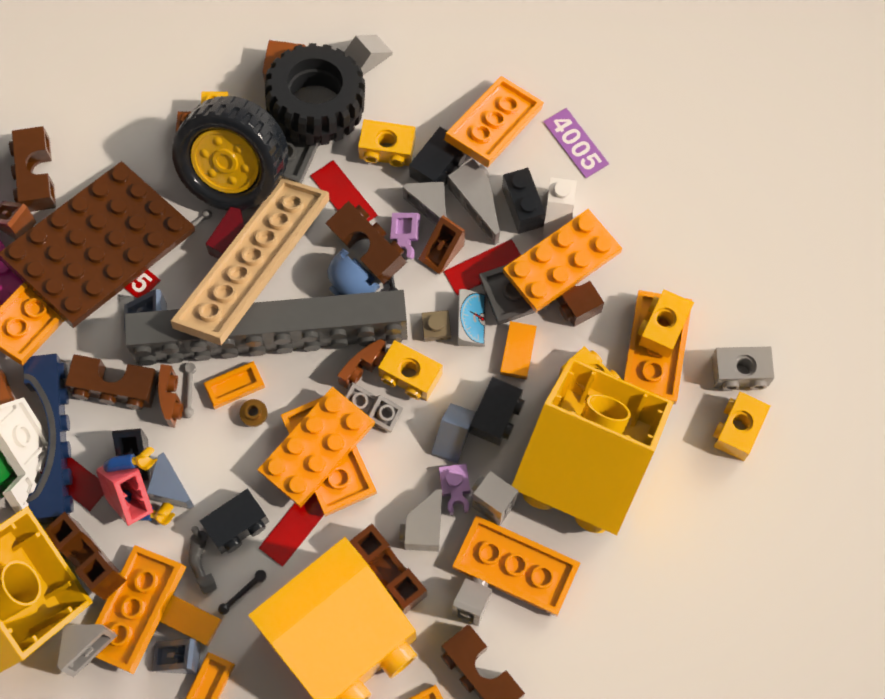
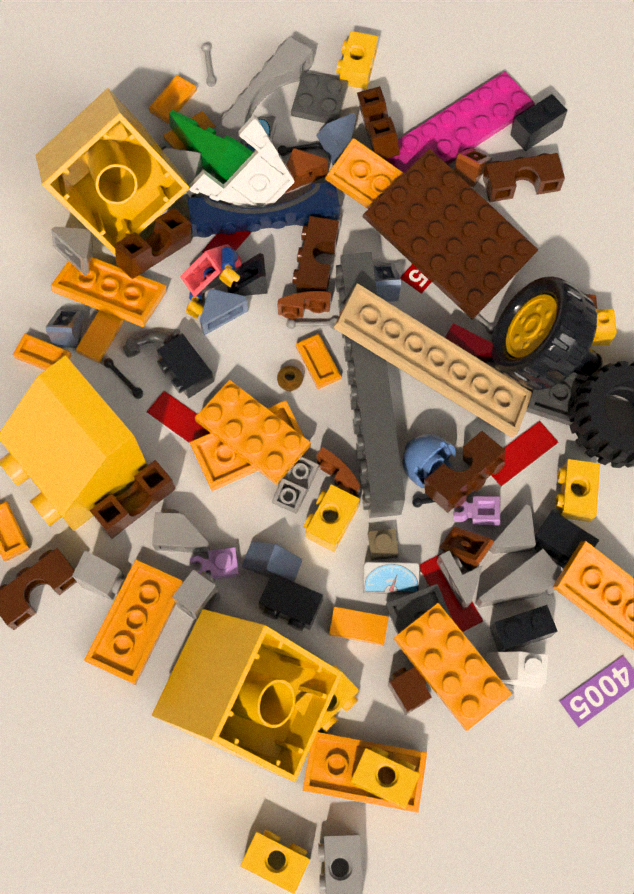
camera: 90 degrees right, 0 degrees up
(480, 251) = (461, 585): none -> light grey slope

